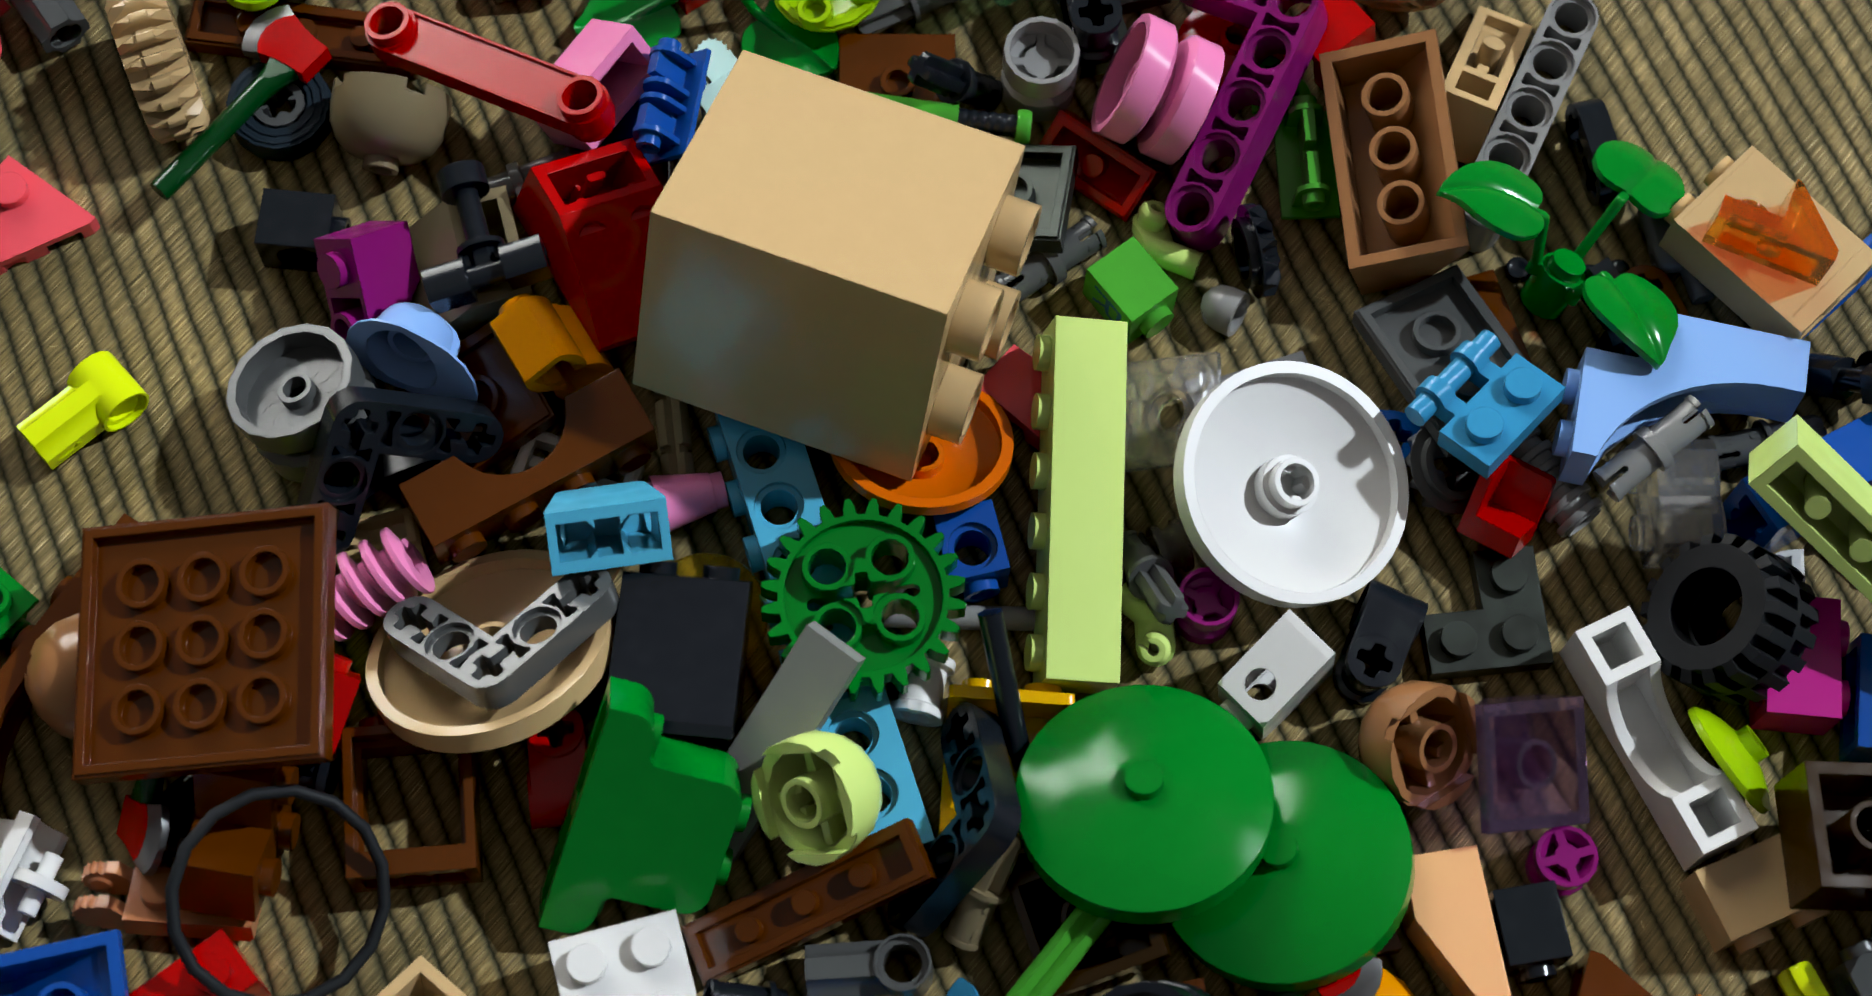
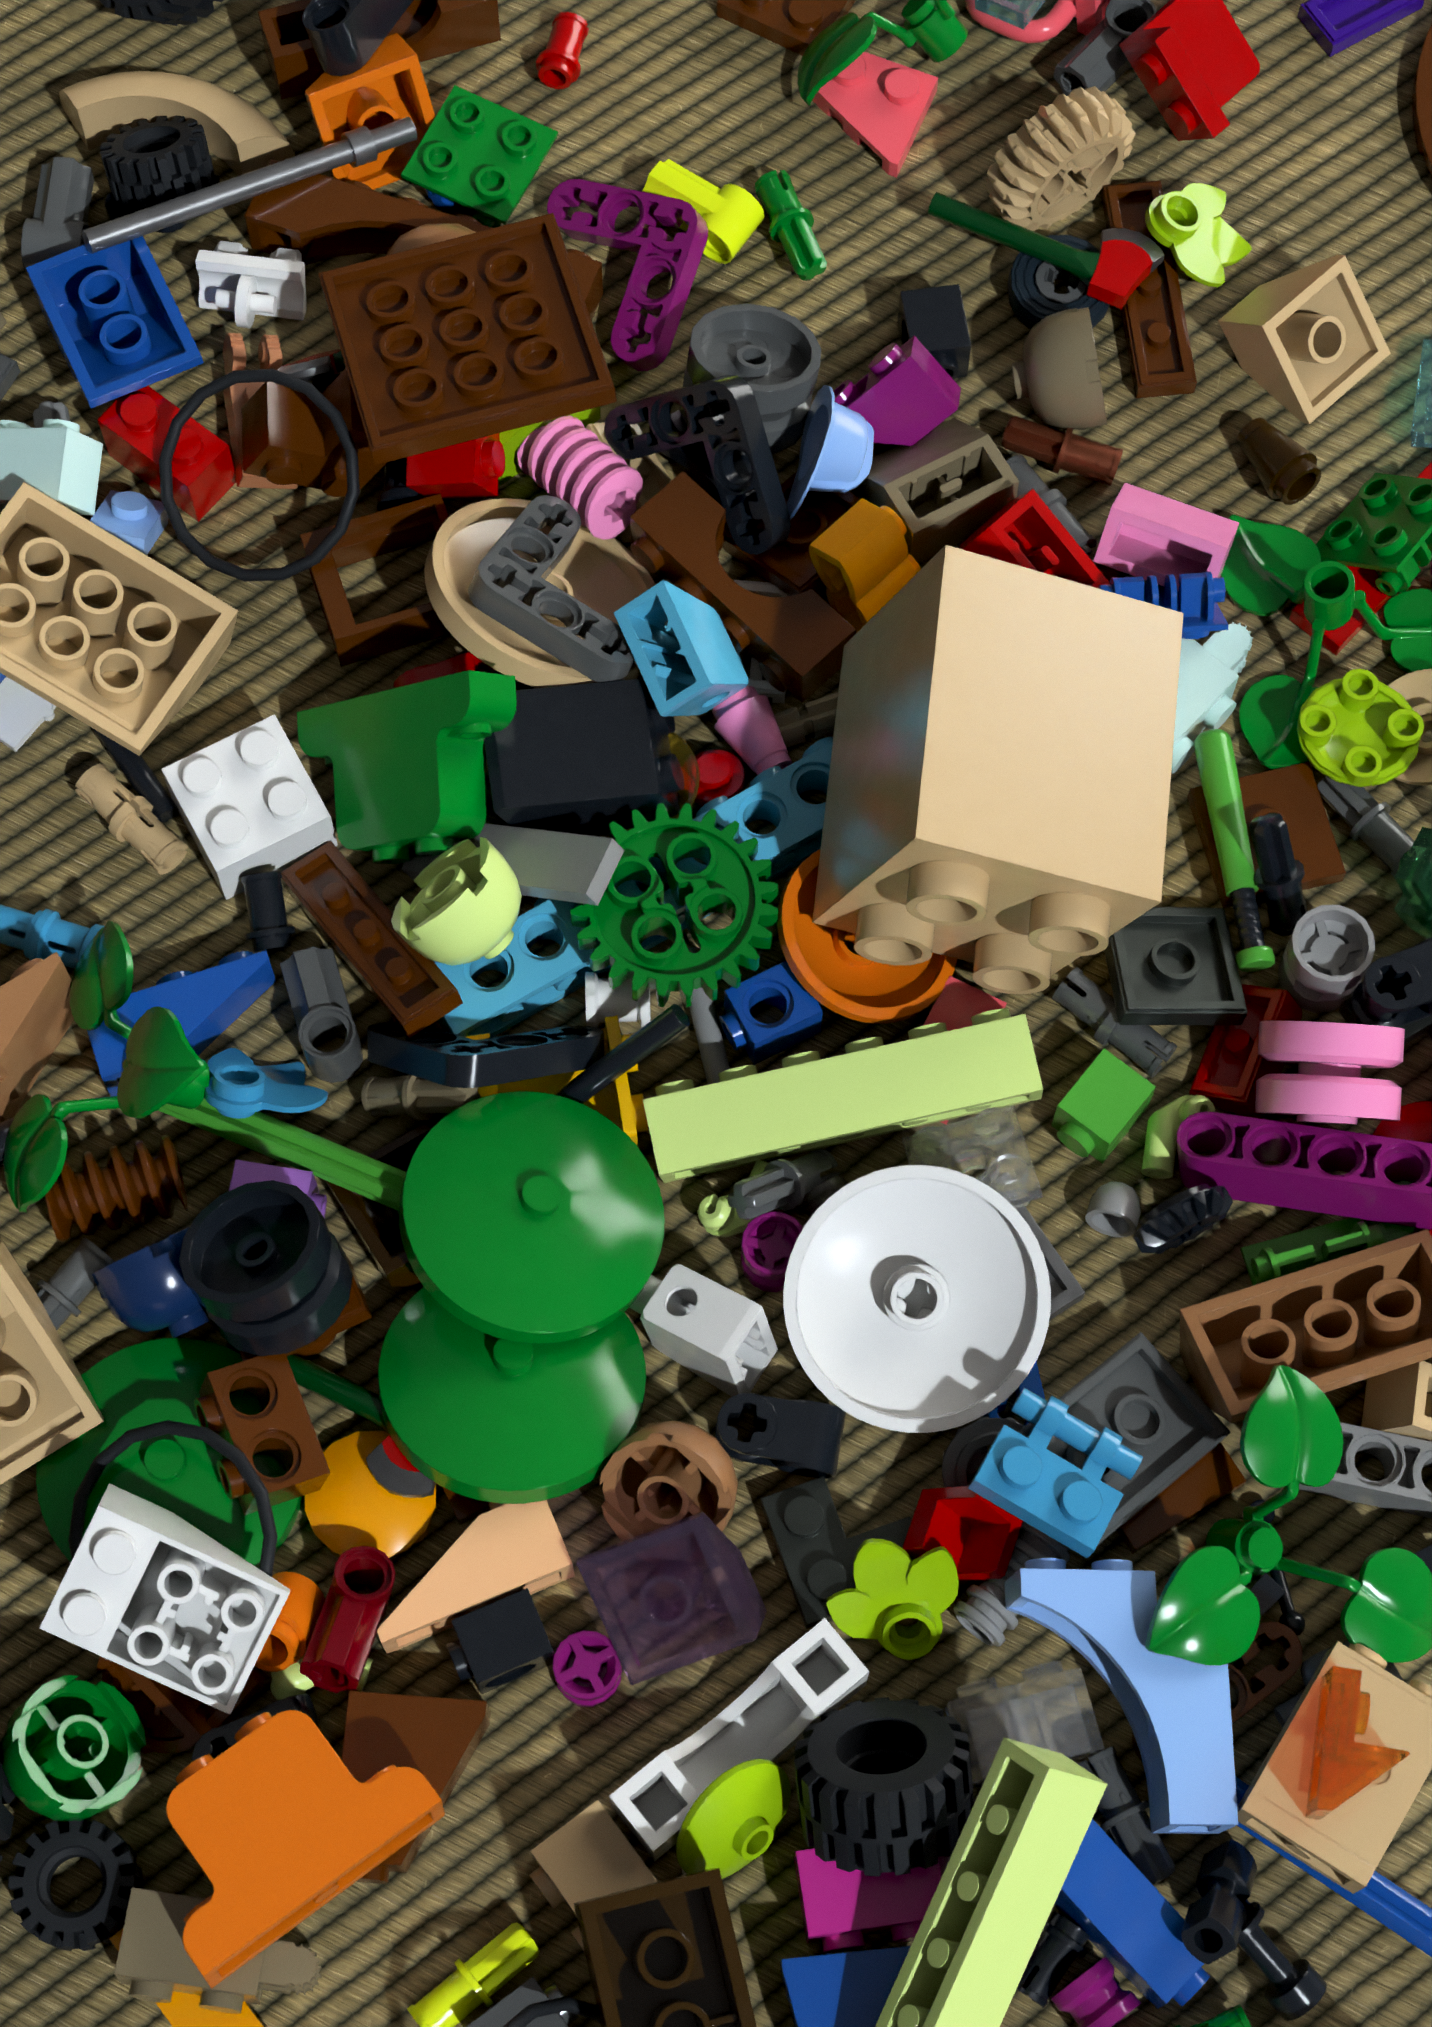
camera: 80 degrees right, 0 degrees up
(127, 460) = (655, 252): none -> magenta beam
(128, 332) = (791, 224): none -> green axle
(464, 143) = (1062, 450): none -> copper axle
(482, 257) = (926, 475): black bar -> none
(490, 71) = (1137, 438): piece -> none
(715, 536) = (719, 775): none -> red plate
(1551, 576) = (894, 1589): none -> lime plate
(1653, 448) = (1062, 1671): light grey pin -> none

